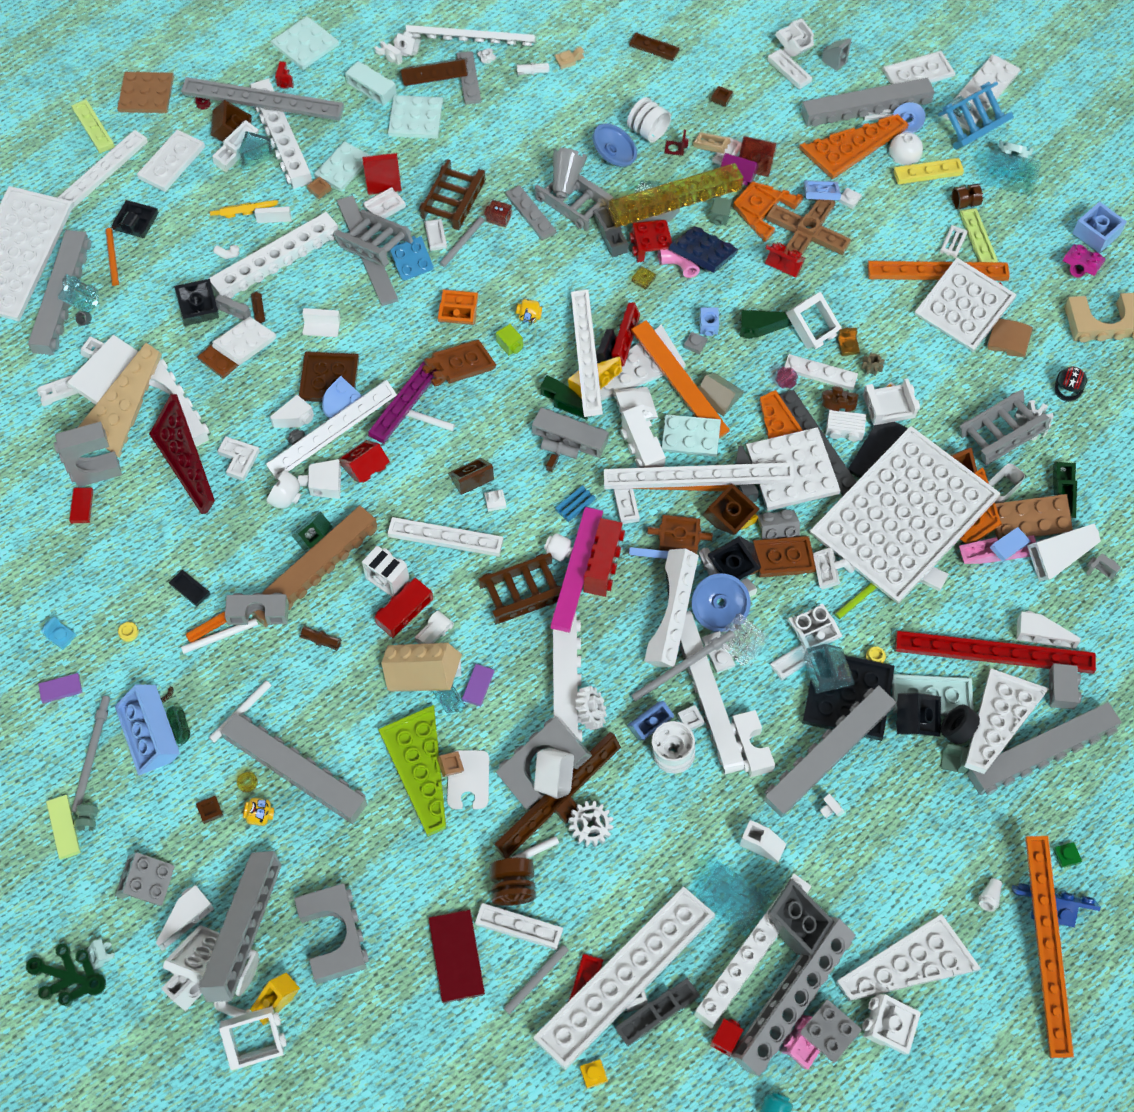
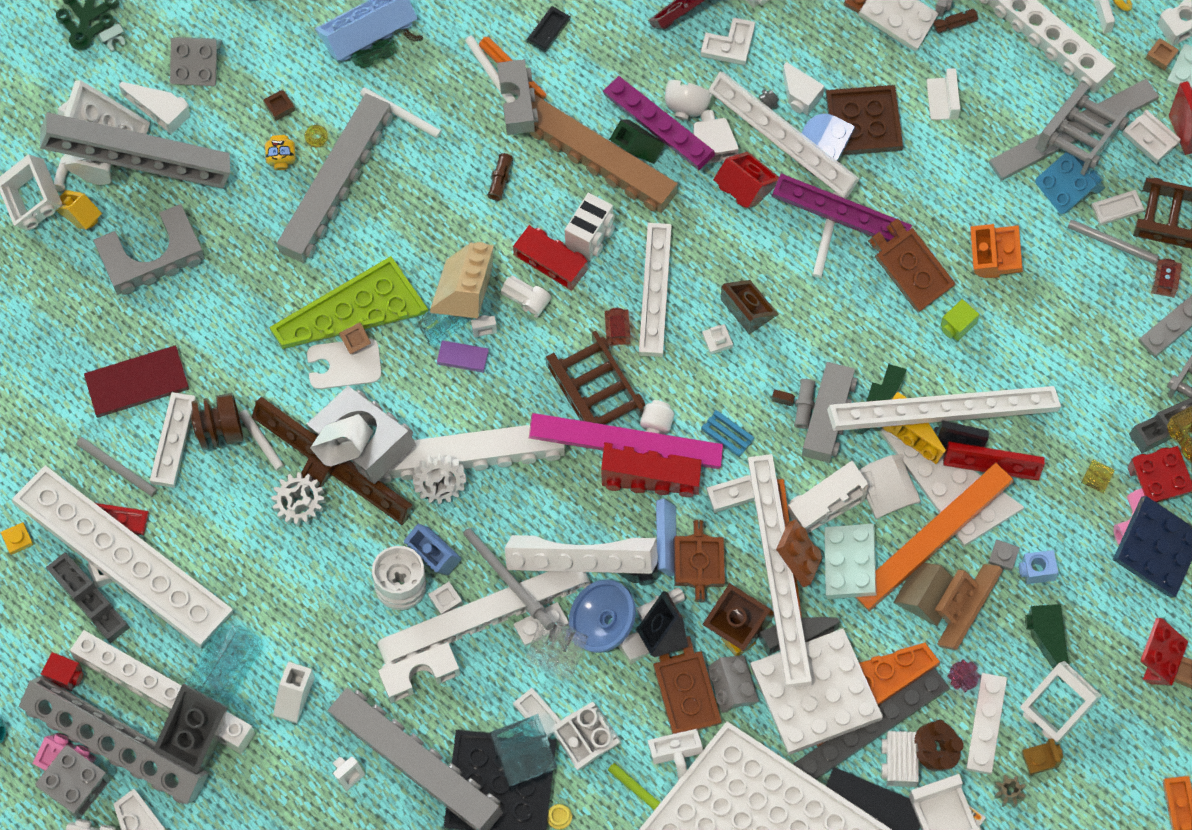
camera: 85 degrees right, 5 degrees up
(300, 513) = (659, 123): none -> magenta plate
(473, 565) = (617, 326): none -> clear red brick
(529, 311) = (1011, 337): yellow head -> none
(686, 460) = (799, 553): none -> dark orange plate
(732, 369) = (963, 602): none -> medium nougat bracket

